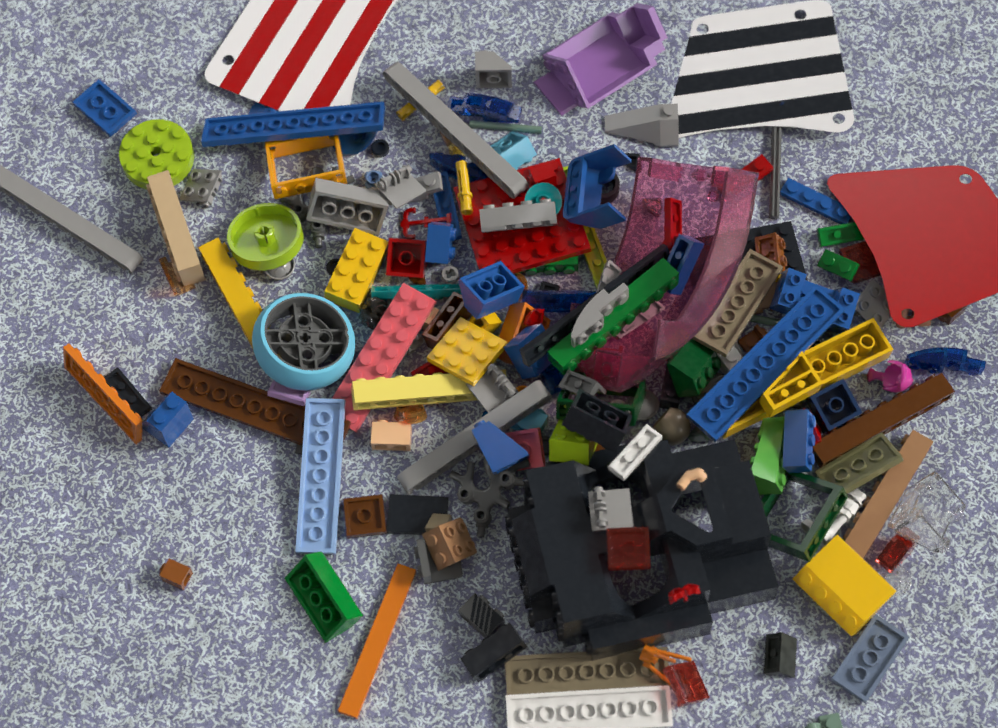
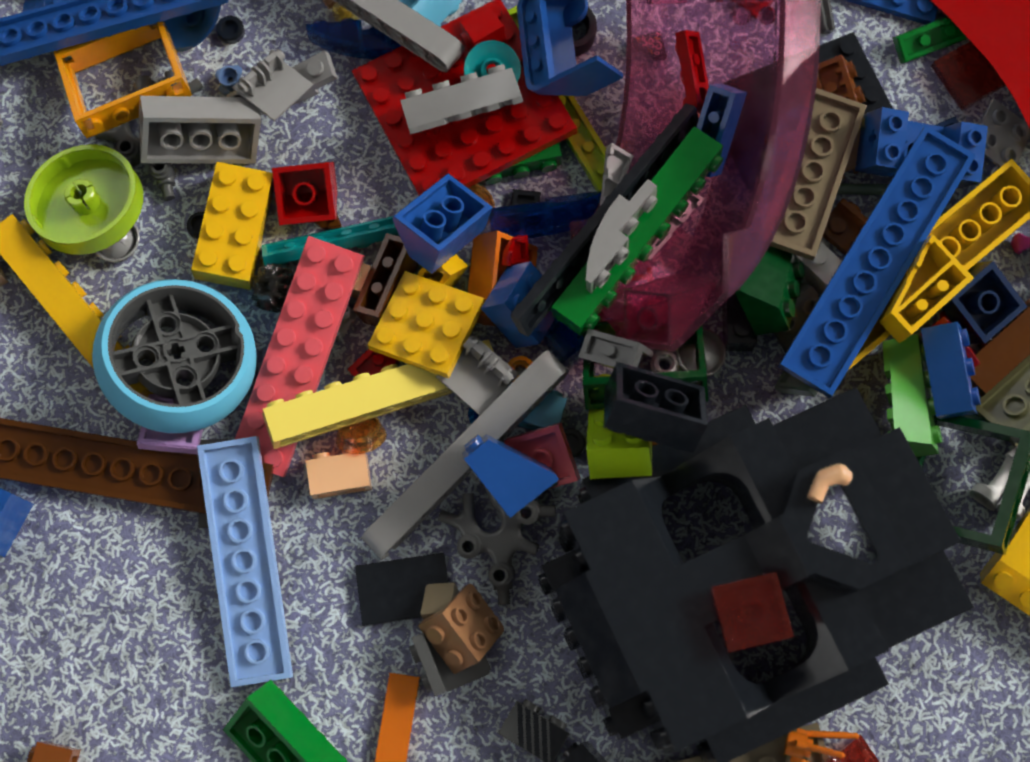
camera: 15 degrees left, 10 degrees up
(364, 516) = (324, 608): reddish brown plate -> none
(405, 223) = (293, 139): red piece -> none
(440, 242) = (350, 161): blue brick -> none
(445, 203) = (350, 108): blue plate -> none
(447, 270) = (369, 199): light grey bush -> none
(464, 190) = (372, 80): yellow pin -> none
(610, 509) = (709, 551): light grey hinge -> none
(635, 452) = (725, 449): white tile -> none
(673, 426) = (753, 380): dark tan helmet -> none
(678, 593) = (846, 669): red piece -> none
(780, 655) = (983, 700): pearl dark grey panel -> none
(838, 265) = (937, 86): green plate -> none

